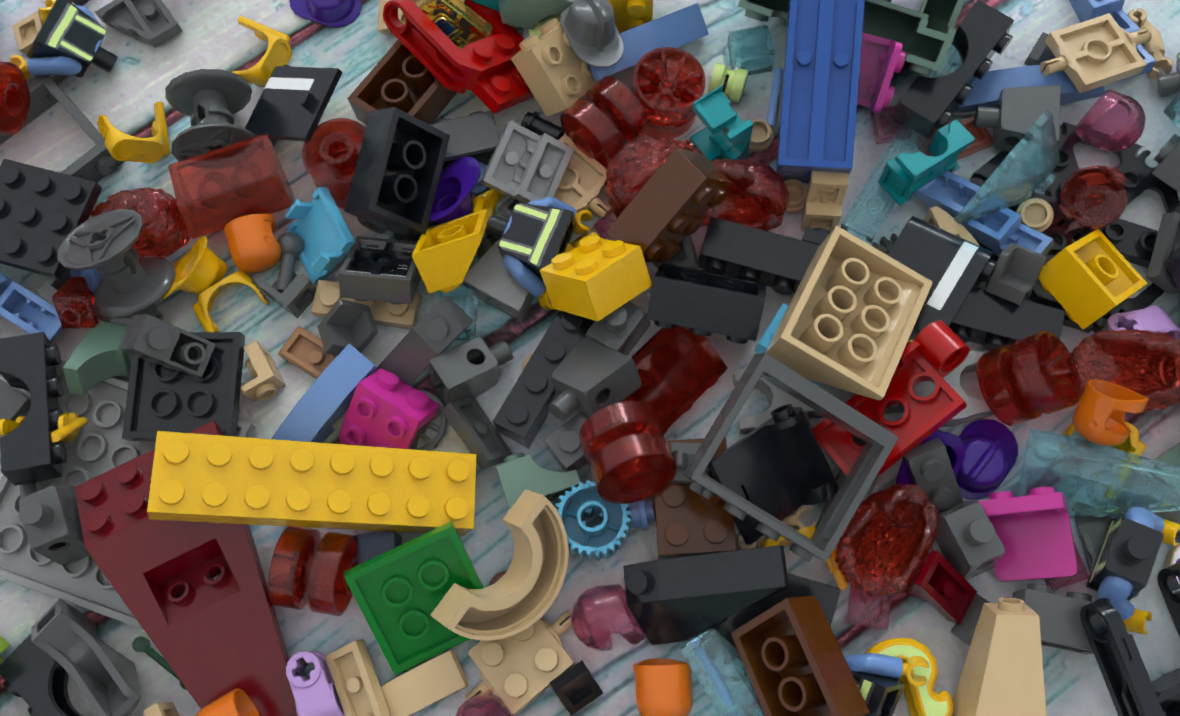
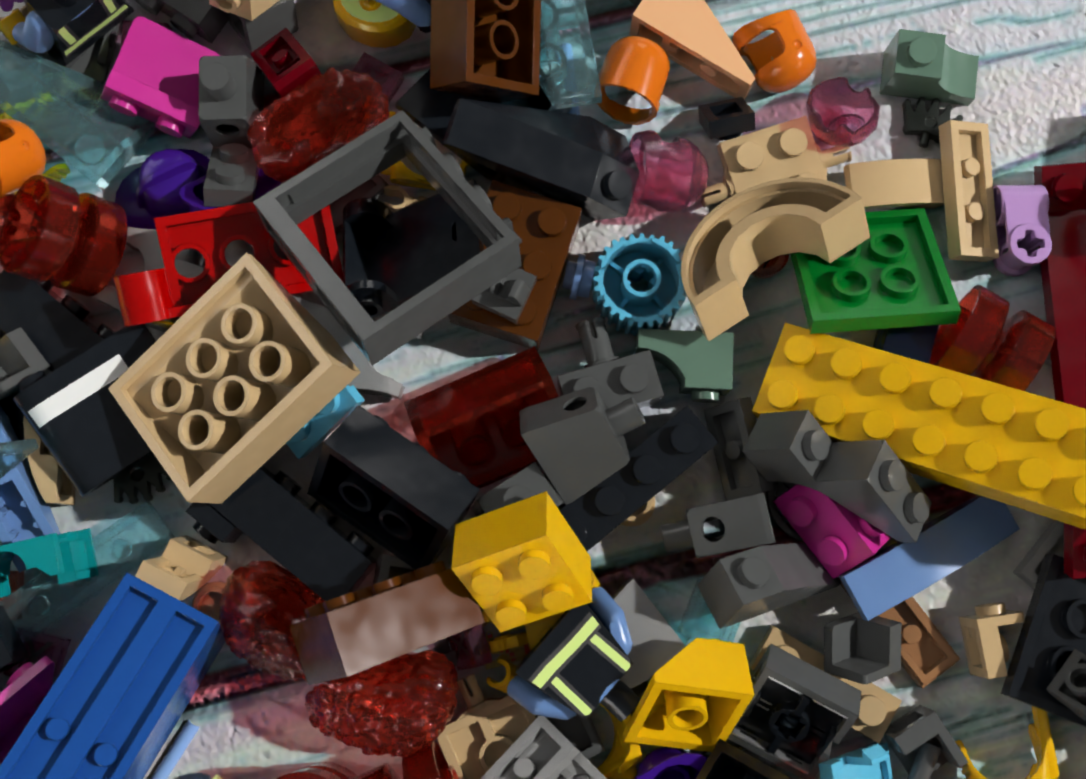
camera: 165 degrees left, 10 degrees up
(399, 427) = (855, 474): none -> dark grey arch
(627, 452) = (573, 337): clear red wheel -> none
(724, 132) = (265, 728): teal piece -> none
(761, 135) = (219, 714): tan plate -> none

